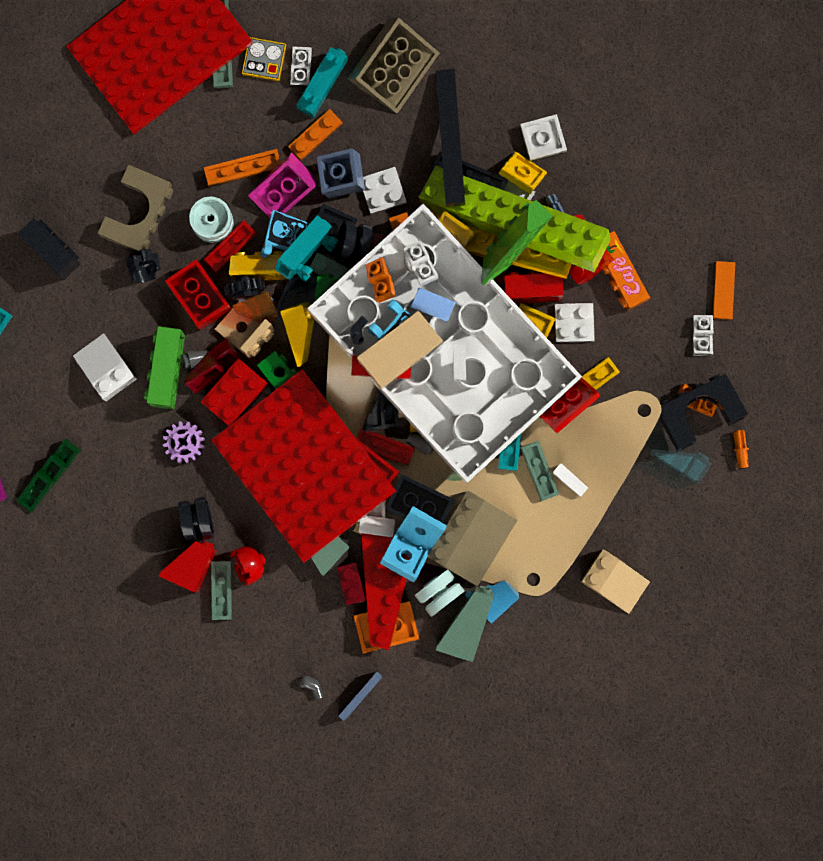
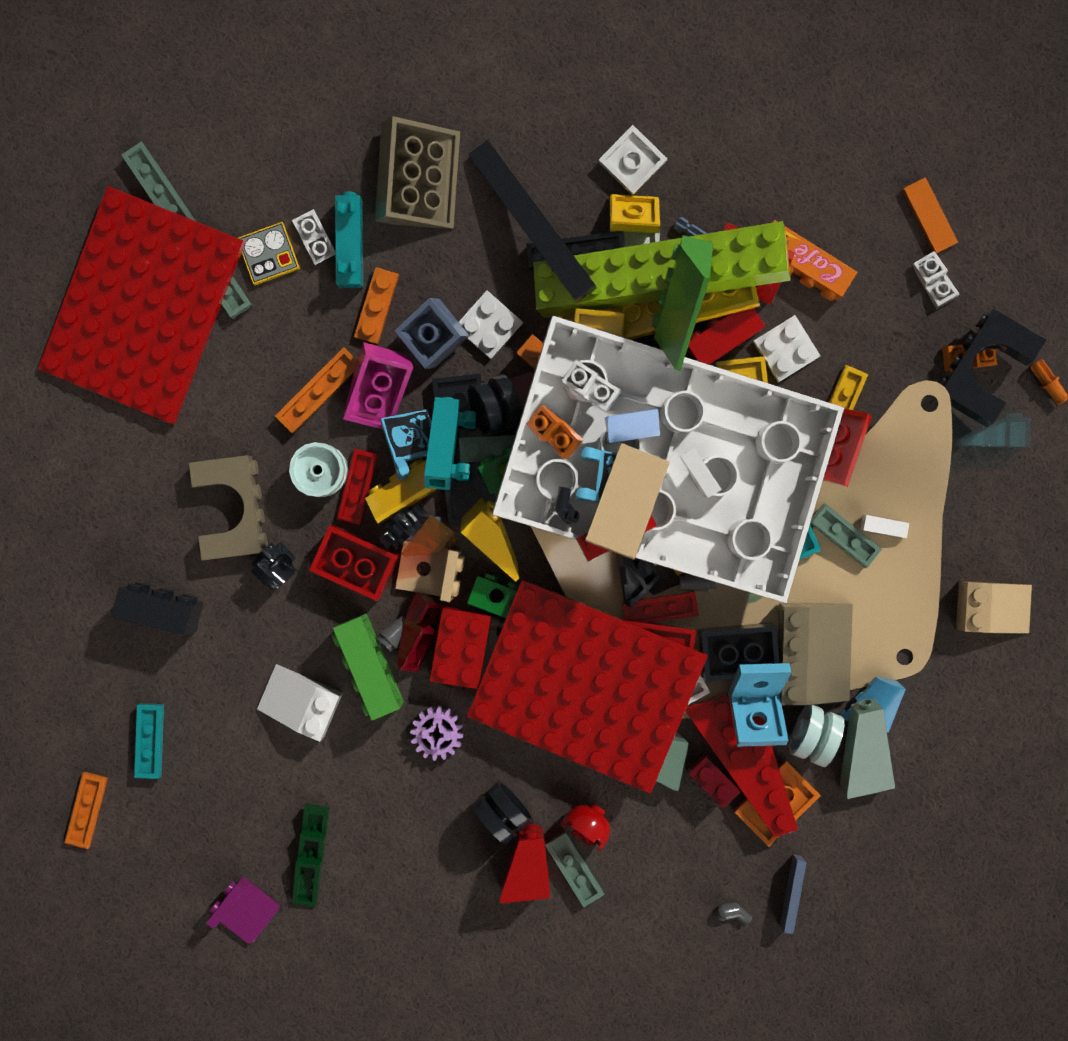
camera: 35 degrees left, 5 degrees up
(377, 526) = (706, 701): white sticker -> none

